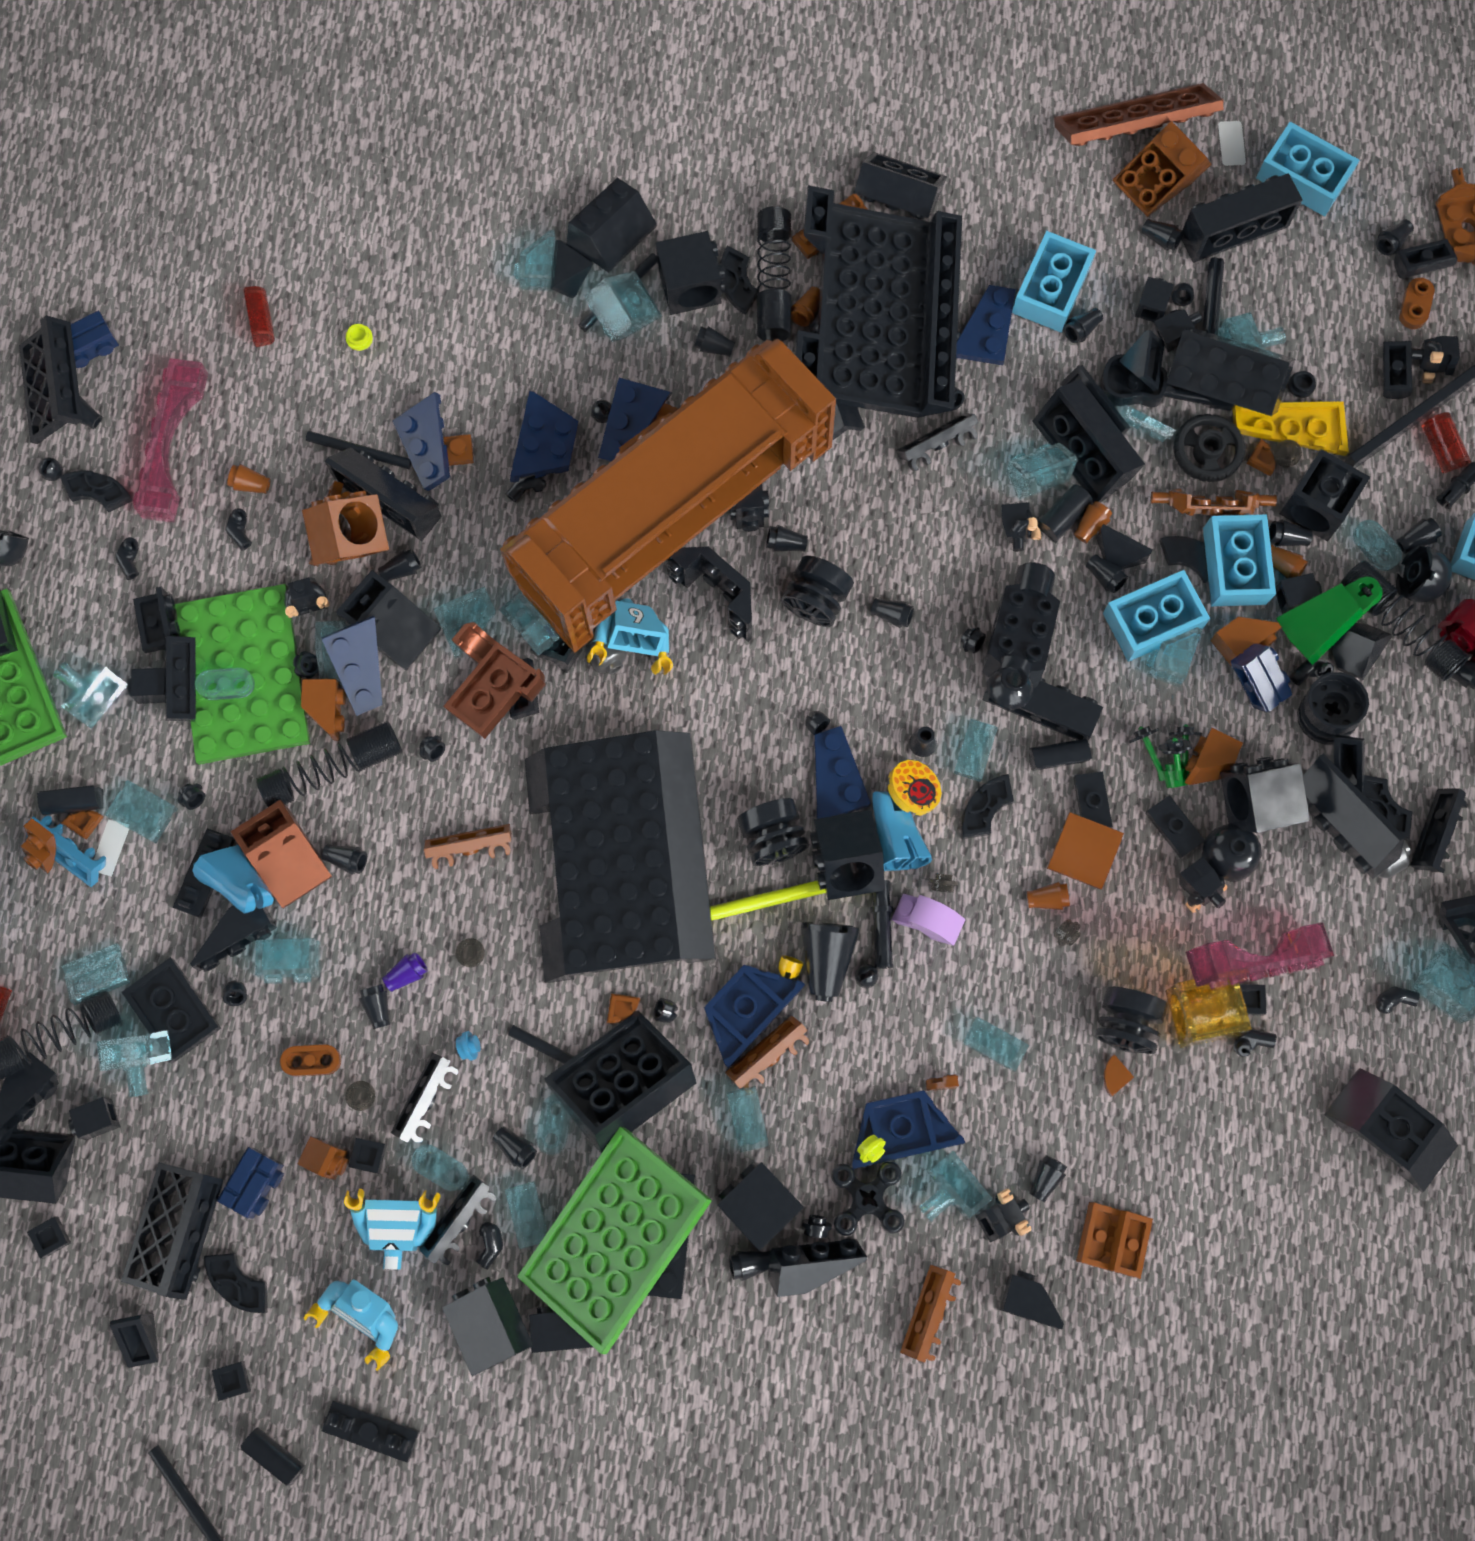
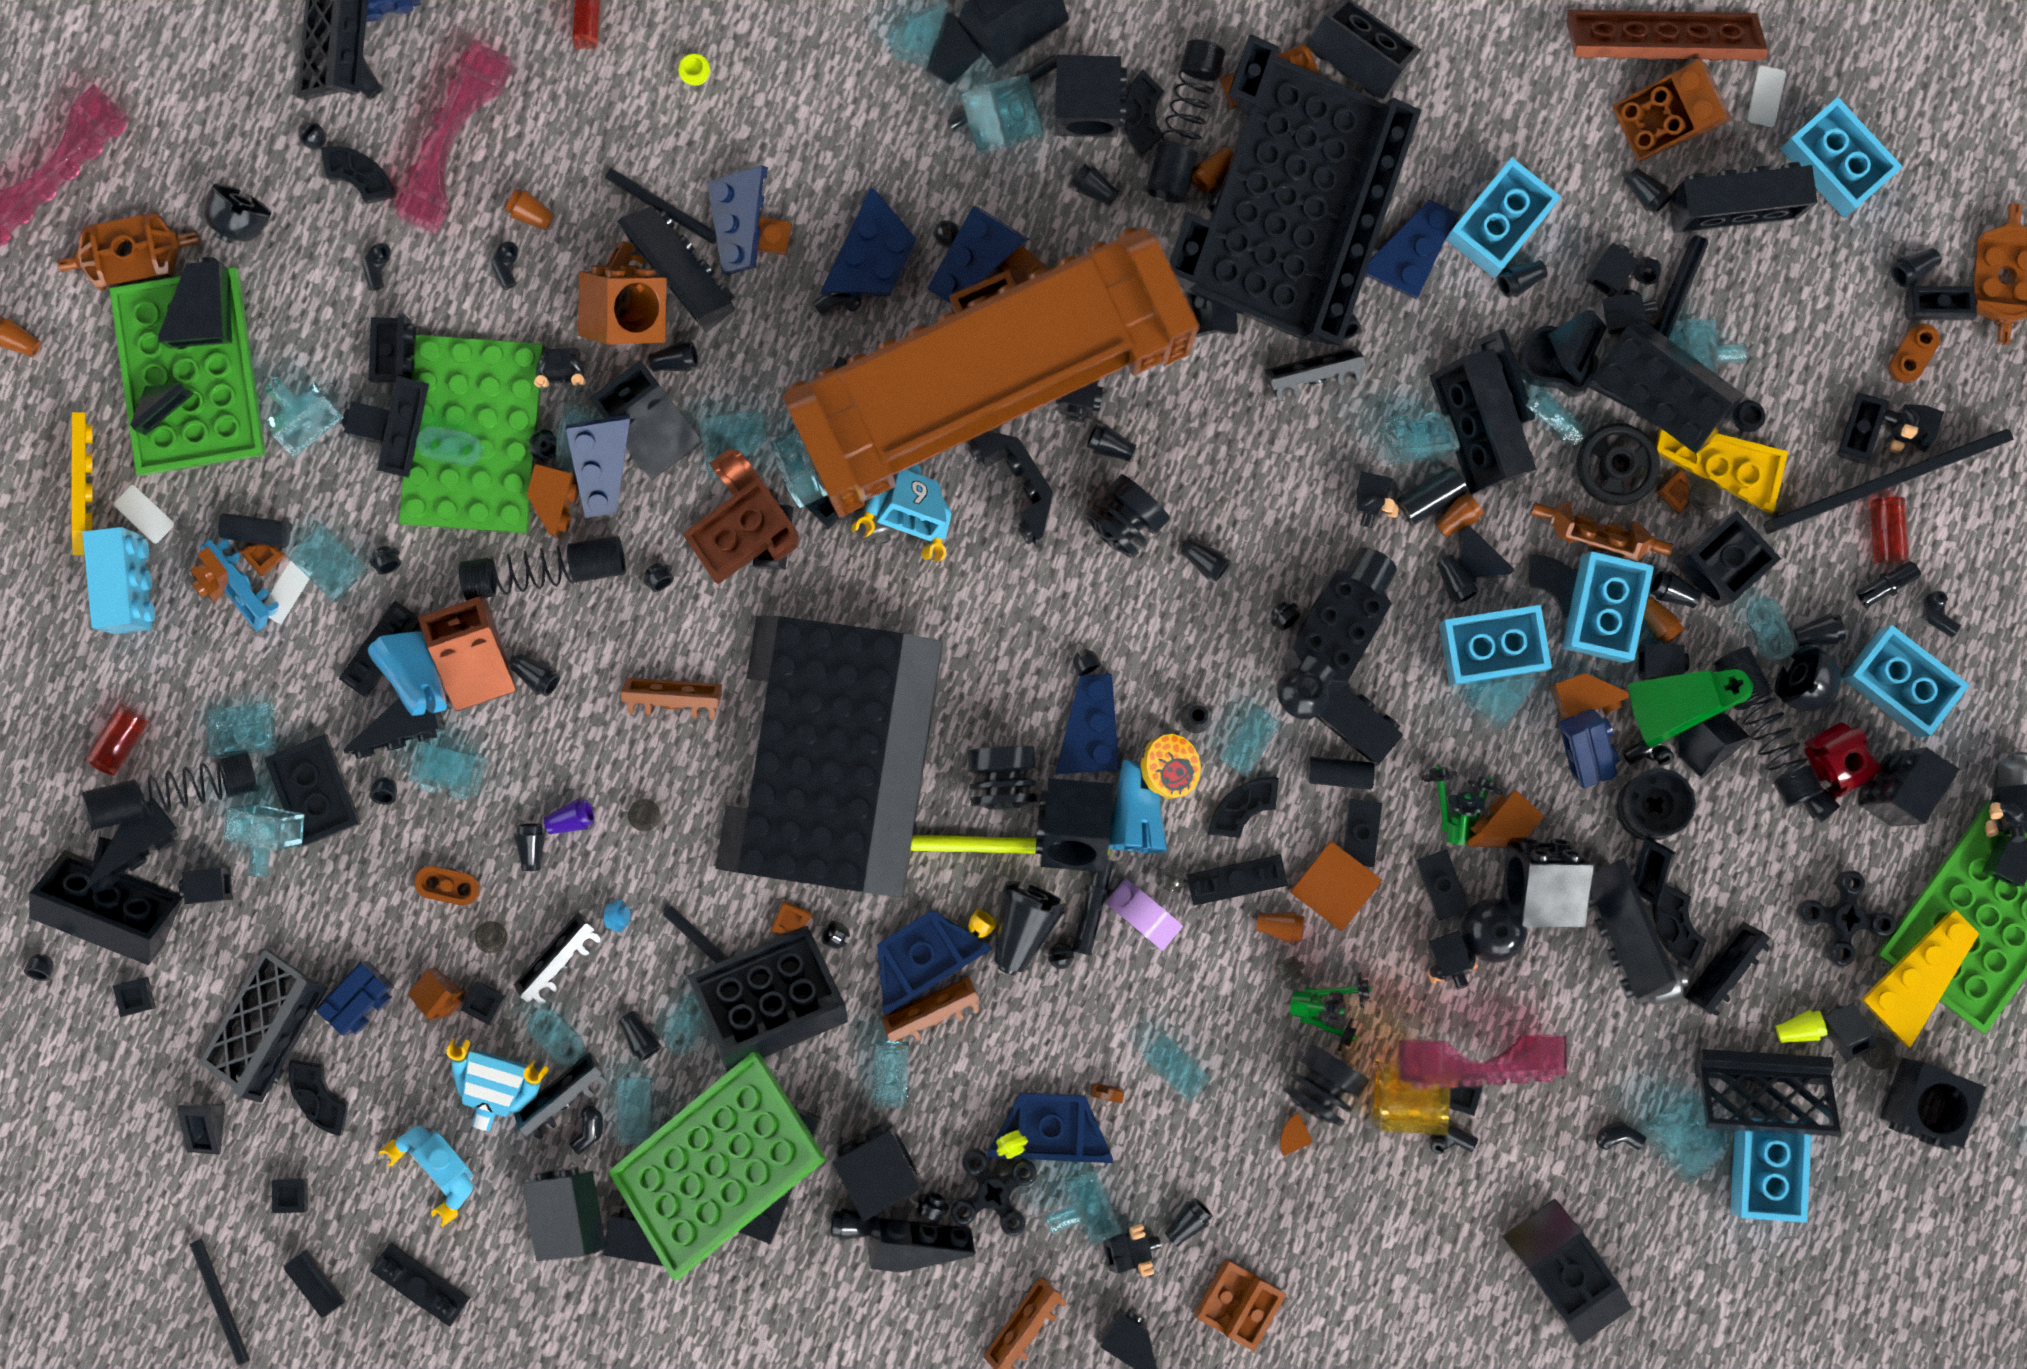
camera: 15 degrees right, 10 degrees up
(999, 869) = (1237, 880): none -> black plate
(1093, 955) = (1307, 1005): none -> plant

